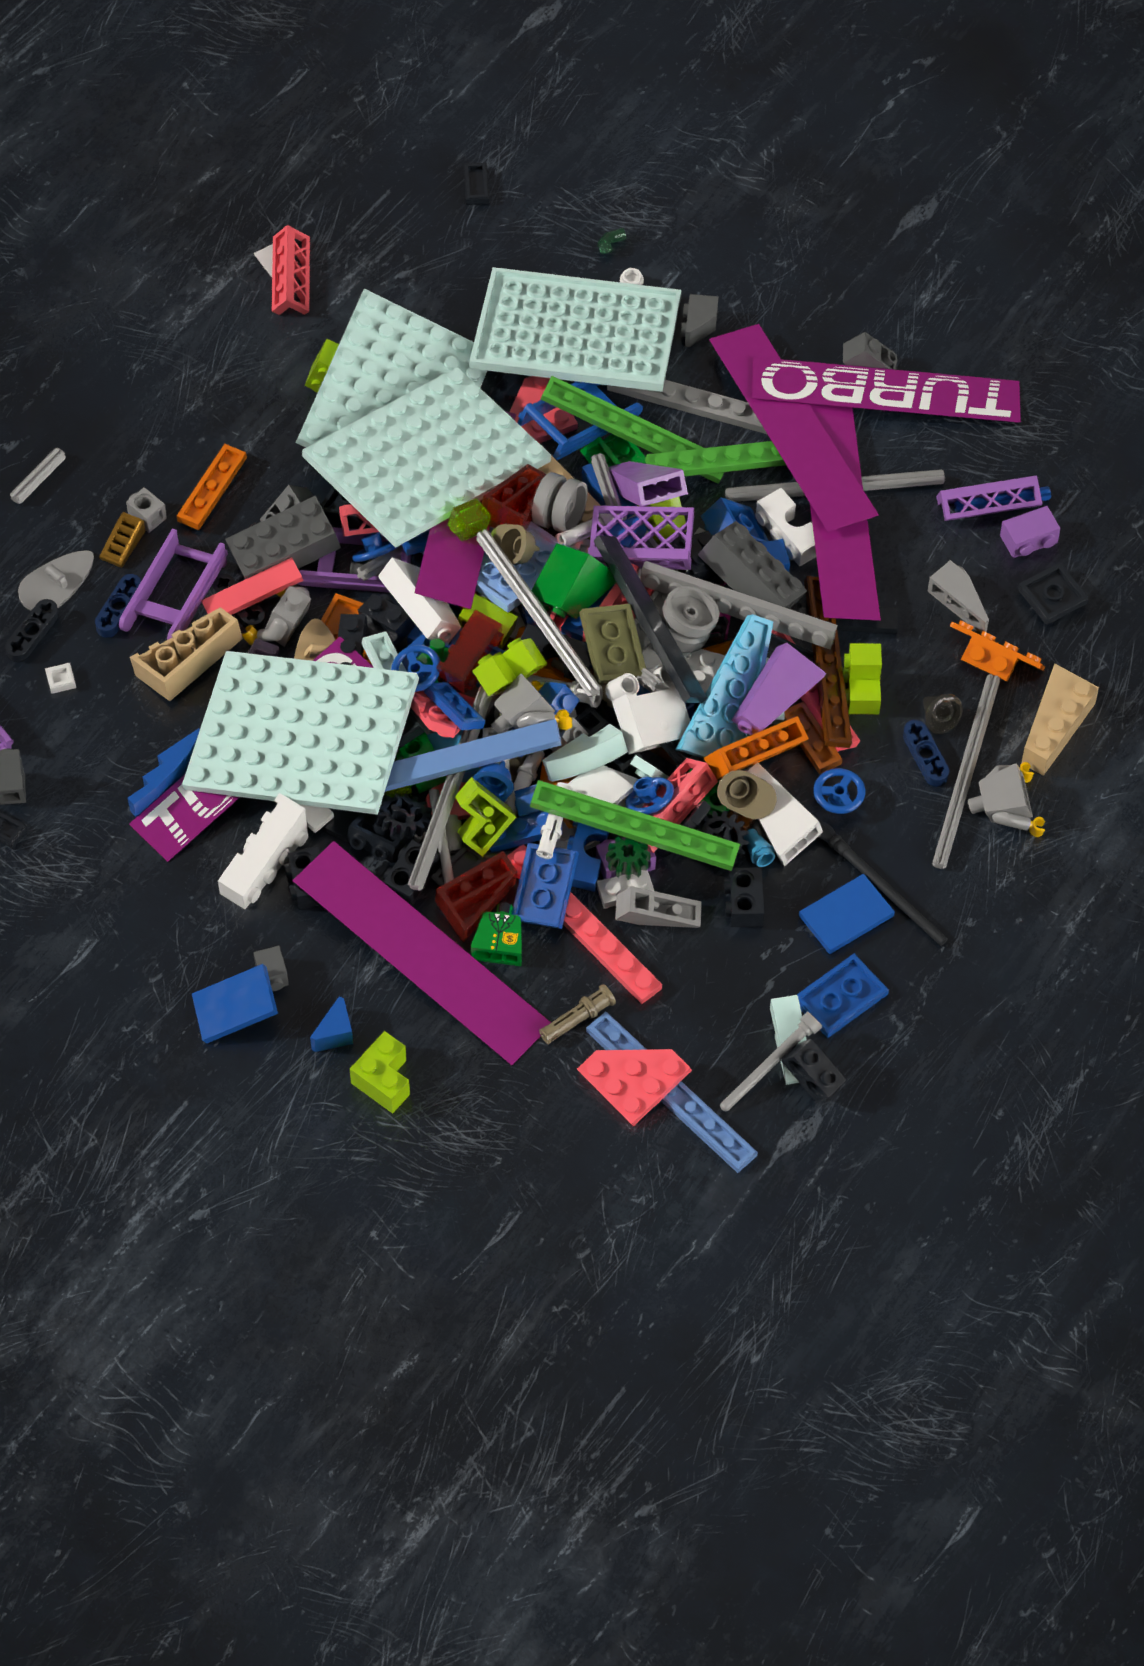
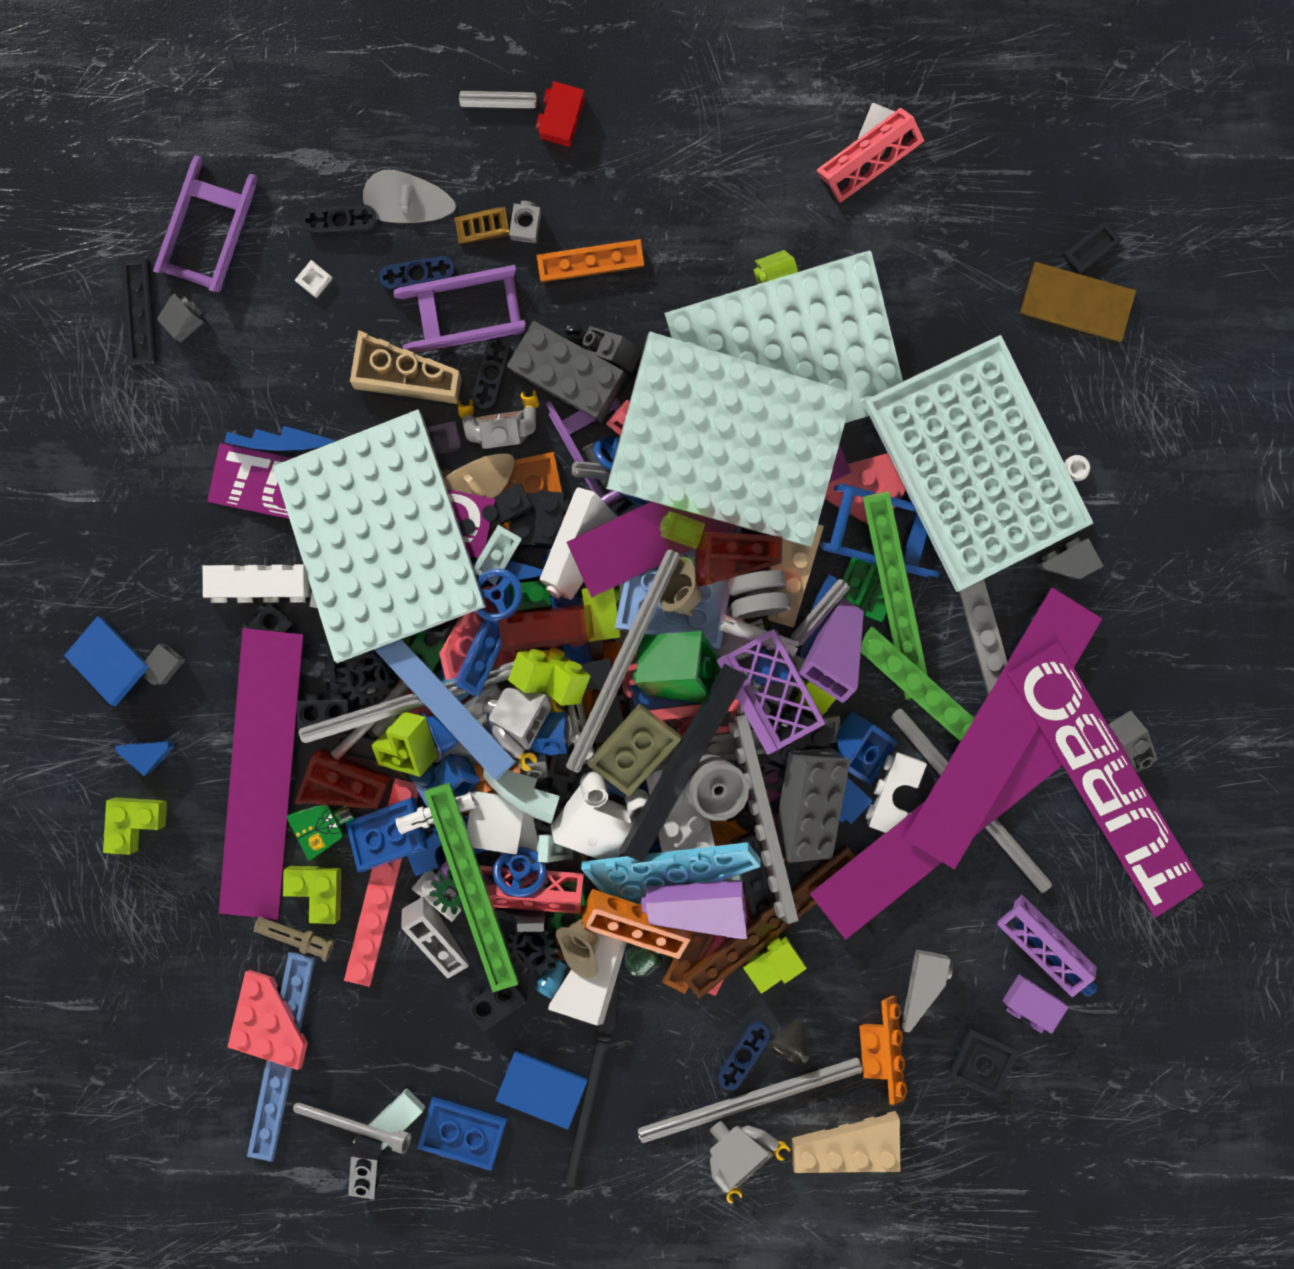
camera: 60 degrees right, 30 degrees up
(86, 439) = (561, 113): none -> red brick
(255, 588) = (502, 381): coral tile -> none
(508, 213) = (1077, 302): none -> pearl gold tile
(550, 964) = (322, 887): none -> lime brick
(609, 238) = (1108, 414): clear green arm -> none
(648, 680) = (619, 804): light grey bush -> none
(790, 770) = (642, 961): none -> clear green head
(839, 802) = (639, 996): blue piece -> none

